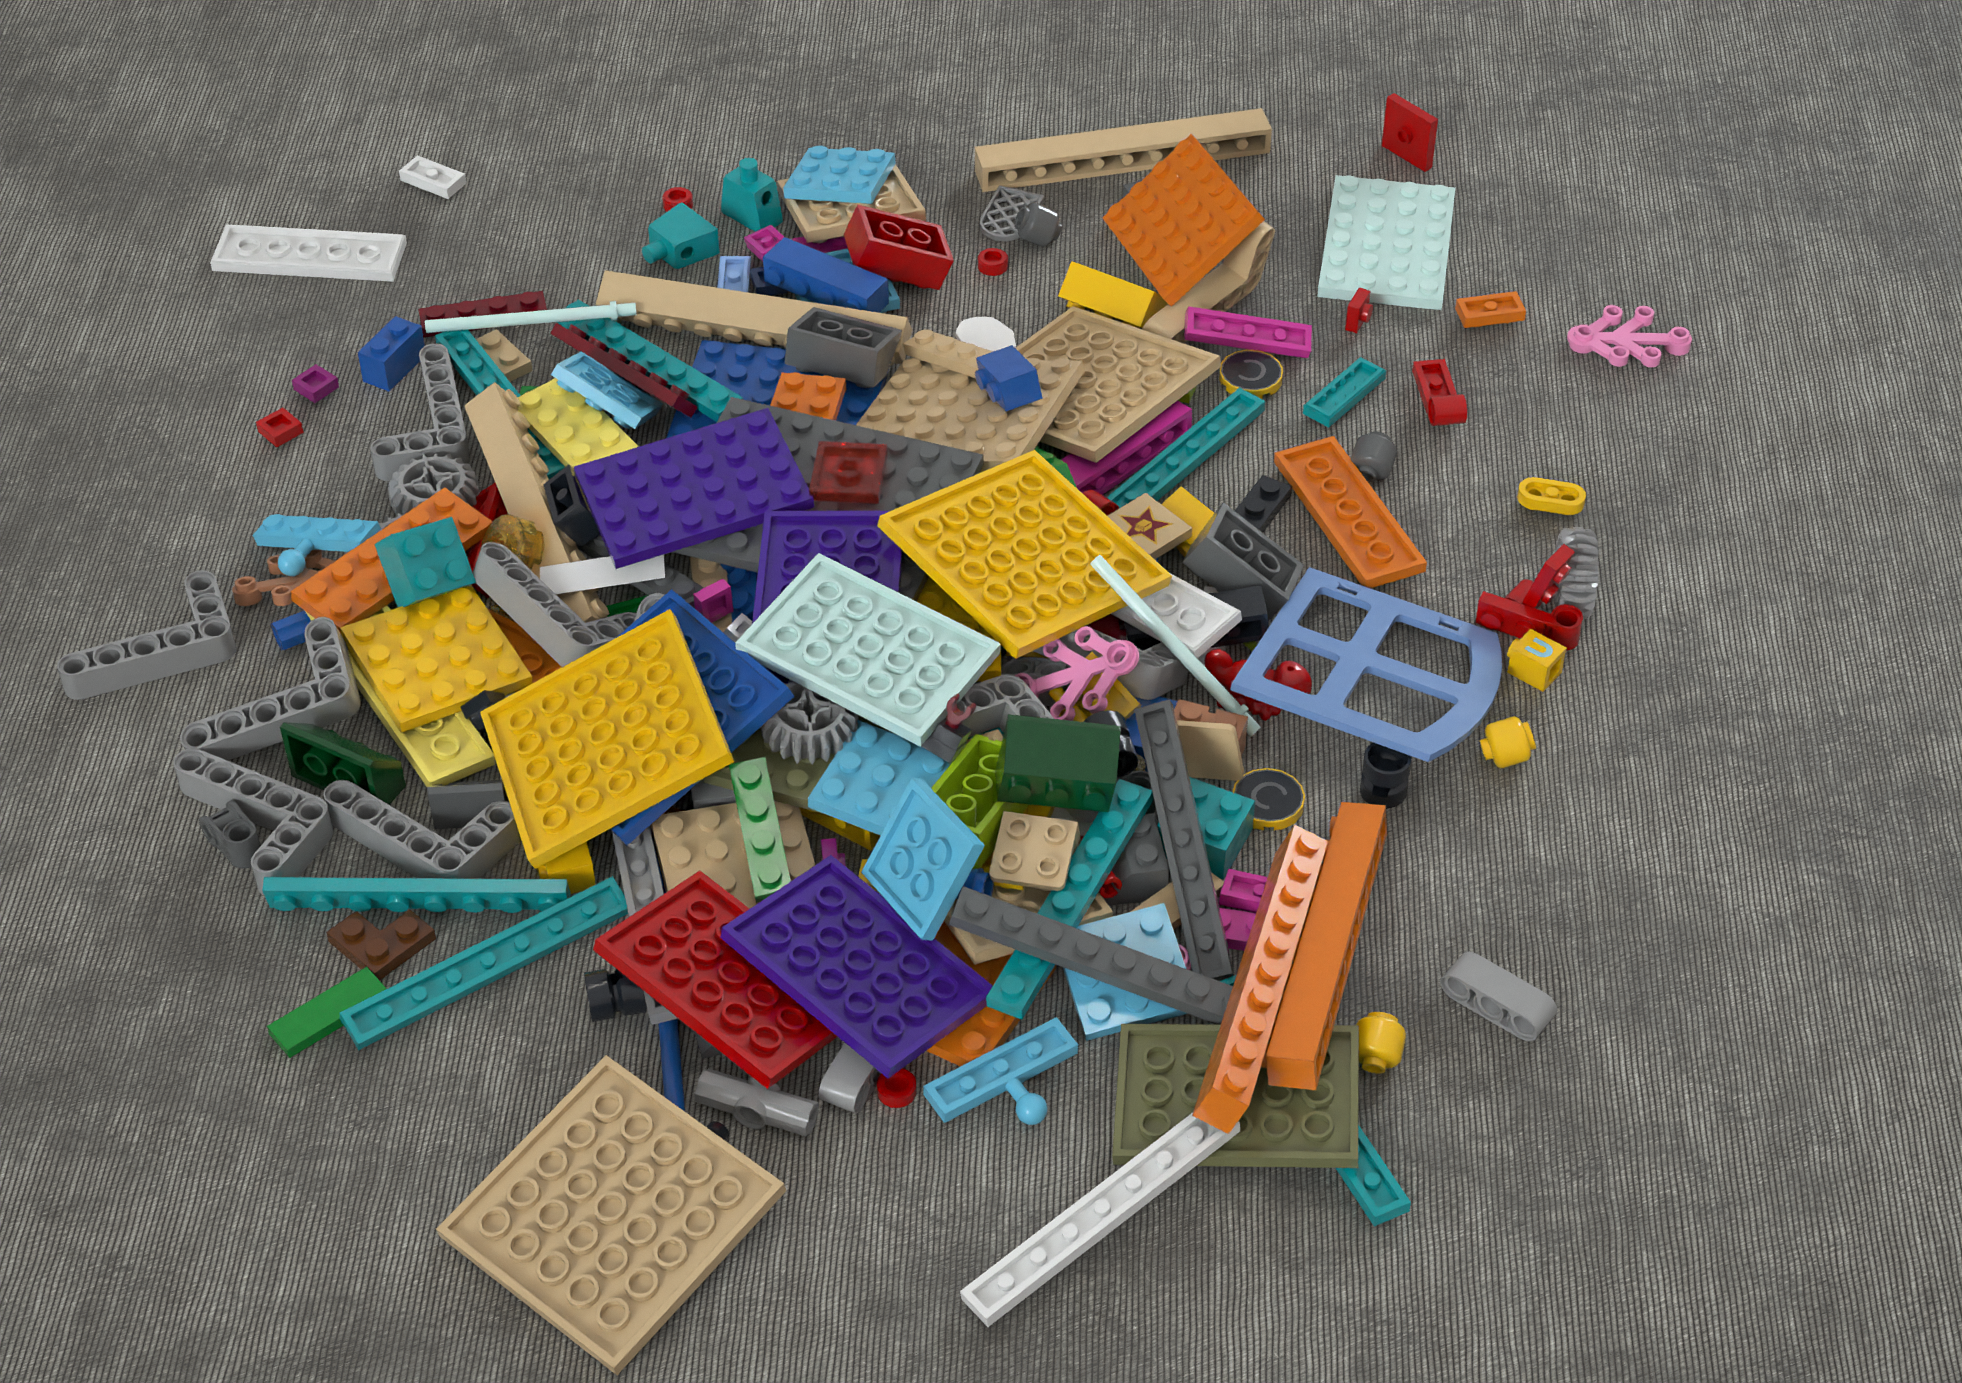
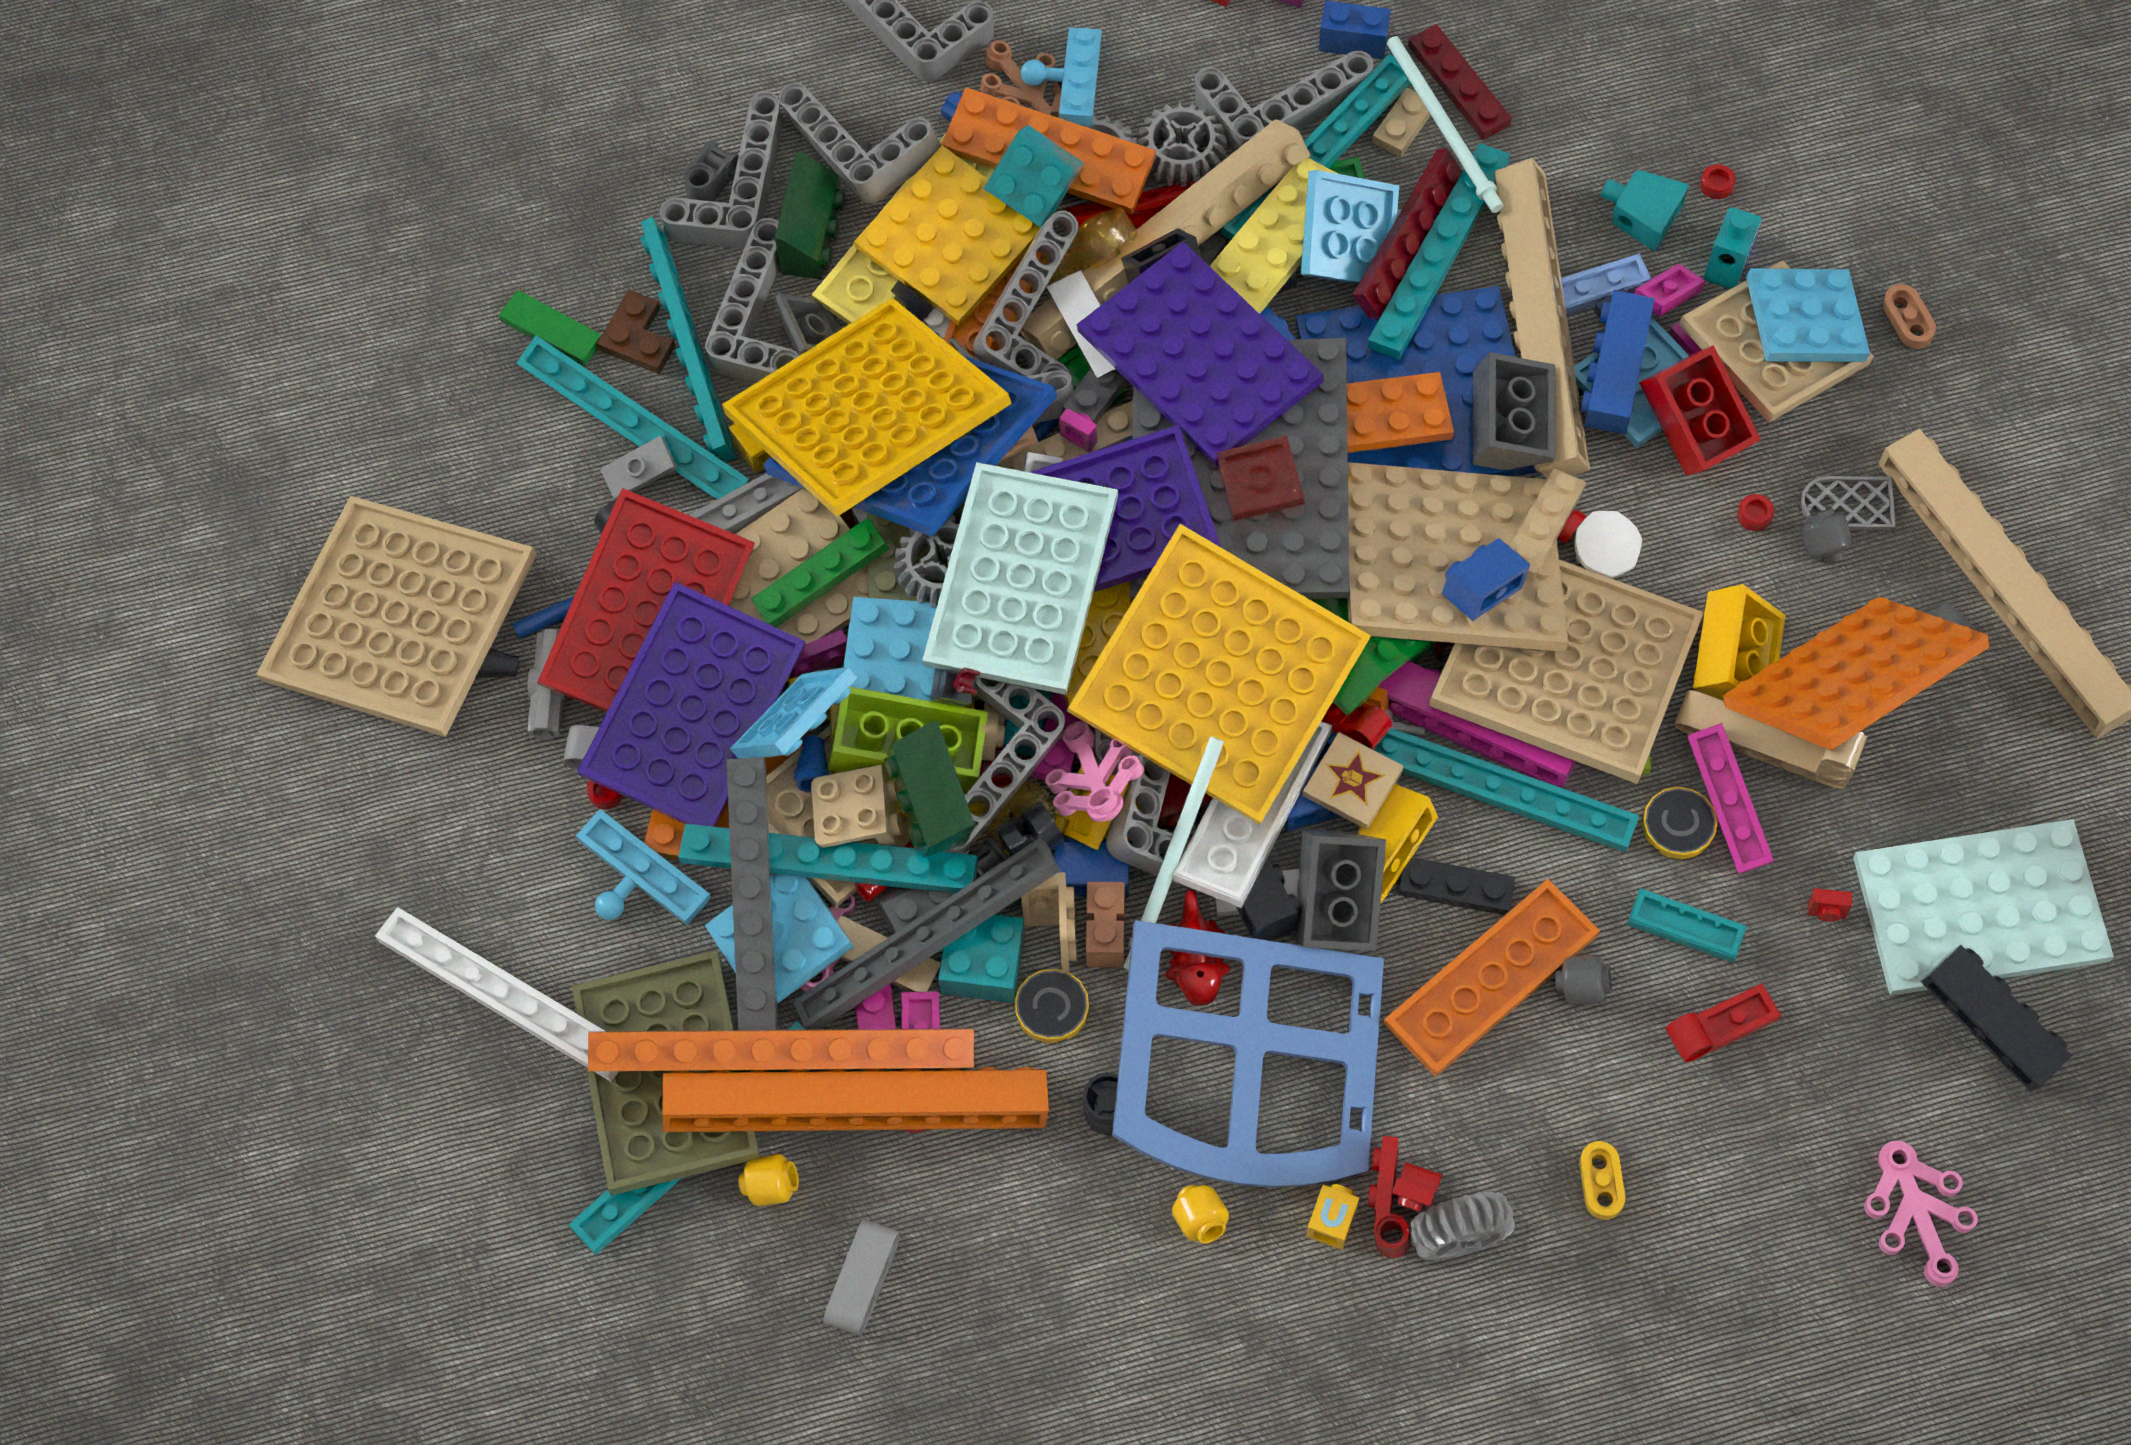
camera: 75 degrees right, 20 degrees up
(546, 967) = (639, 467): none -> light grey plate
(865, 135) = (1910, 318): none -> nougat plate
(1489, 248) = (1996, 1017): none -> black brick
(1490, 309) = (1899, 1046): orange plate -> none

